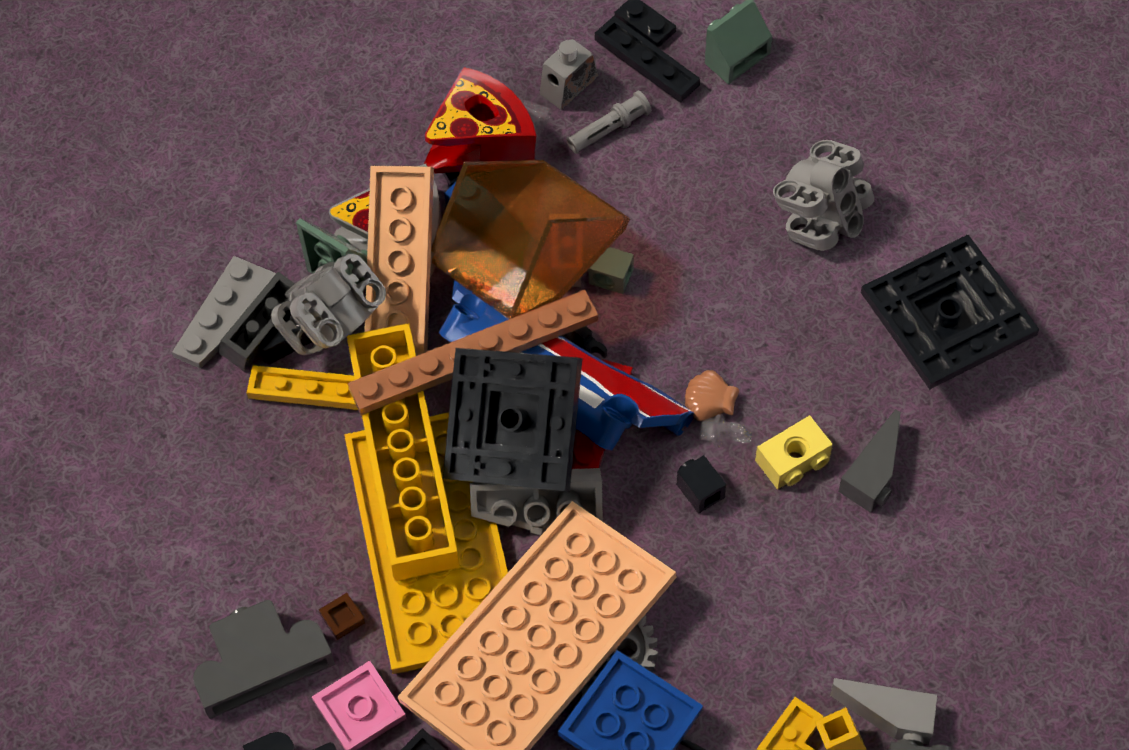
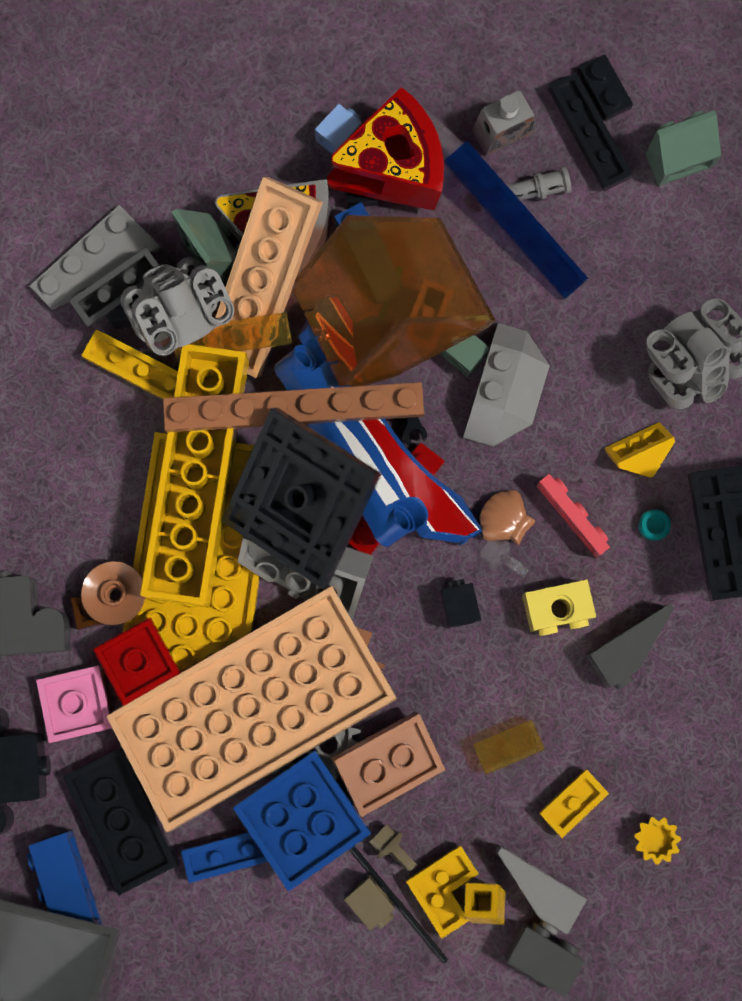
camera: 20 degrees right, 20 degrees up
(355, 574) = (100, 584): none -> nougat dish
(407, 637) = (137, 661): none -> red plate
(409, 308) = (247, 334): none -> clear yellow plate
(413, 129) = (337, 128): none -> light blue brick
(612, 147) = (515, 220): none -> clear blue tile
(664, 289) = (507, 388): none -> light grey wedge
(693, 643) = (388, 764): none -> nougat plate
(724, 722) = (387, 842): none -> dark tan piece
(772, 371) = (574, 515): none -> coral plate
(801, 593) = (508, 746): none -> clear yellow plate
(812, 298) = (642, 451): none -> yellow slope
(851, 356) = (654, 525): none -> teal tile
(885, 621) = (573, 803): none -> yellow plate
(979, 623) = (657, 840): none -> yellow piece

